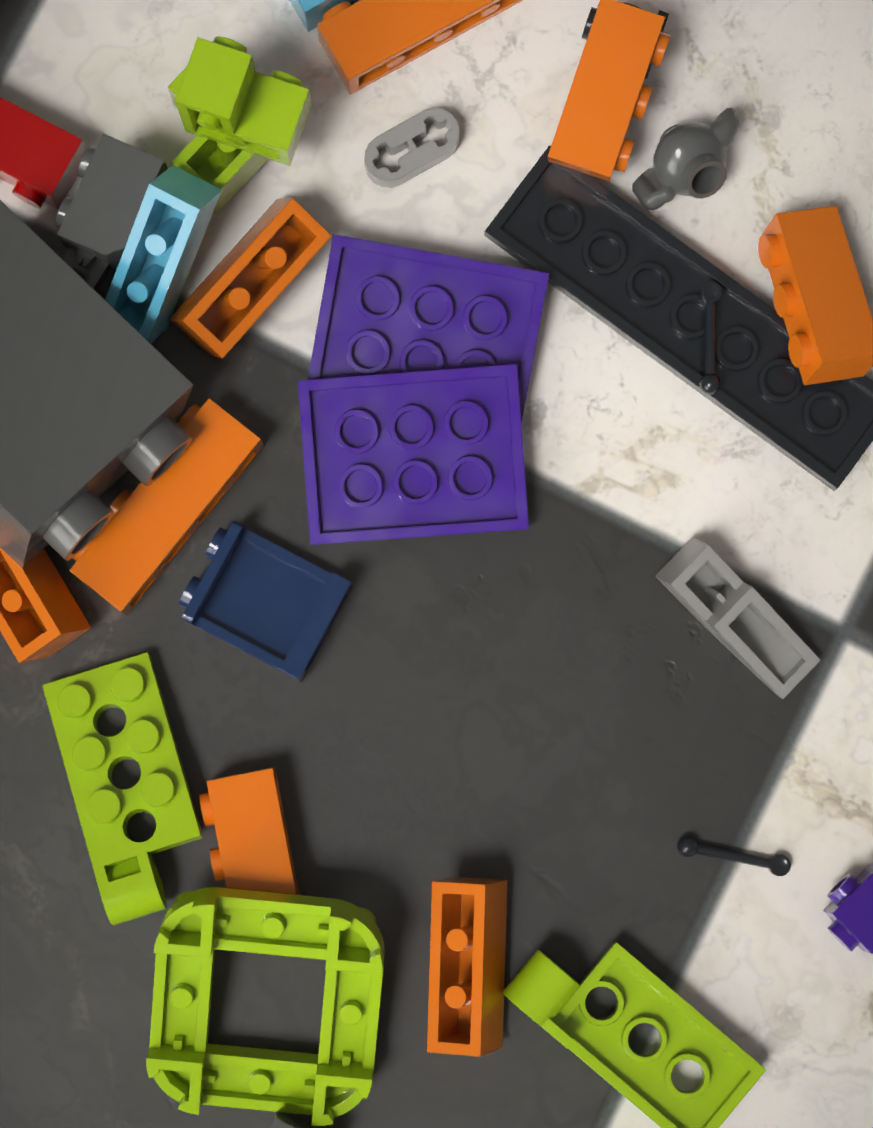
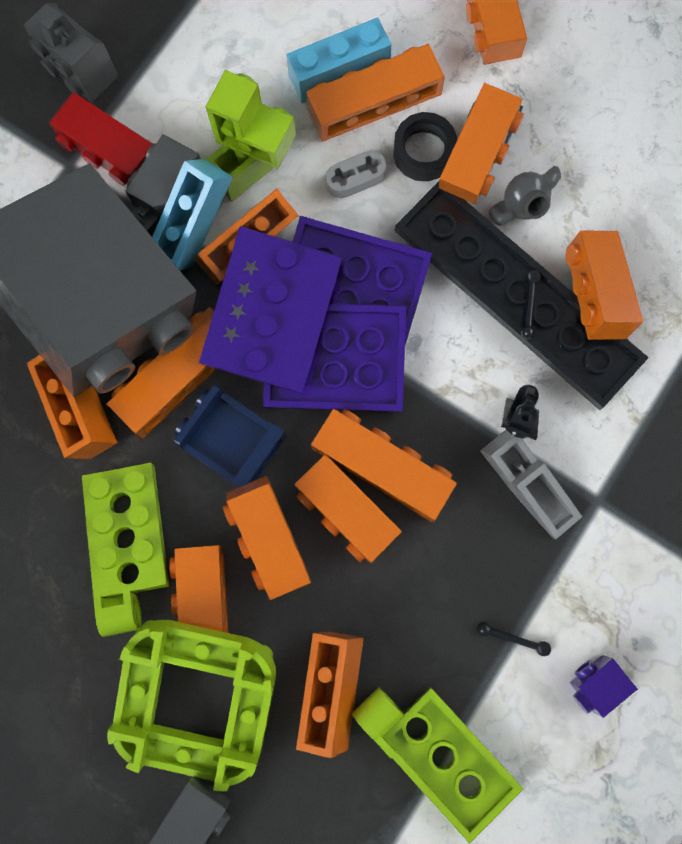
camera: 15 degrees right, 5 degrees down
(307, 395) = (270, 310): none -> dark purple plate
(343, 749) = (266, 538): none -> orange brick
(459, 692) = (346, 510): none -> orange brick
(509, 616) = (384, 465): none -> orange brick
(517, 49) = (427, 123): none -> black tyre
(713, 513) = (520, 414): none -> black hinge

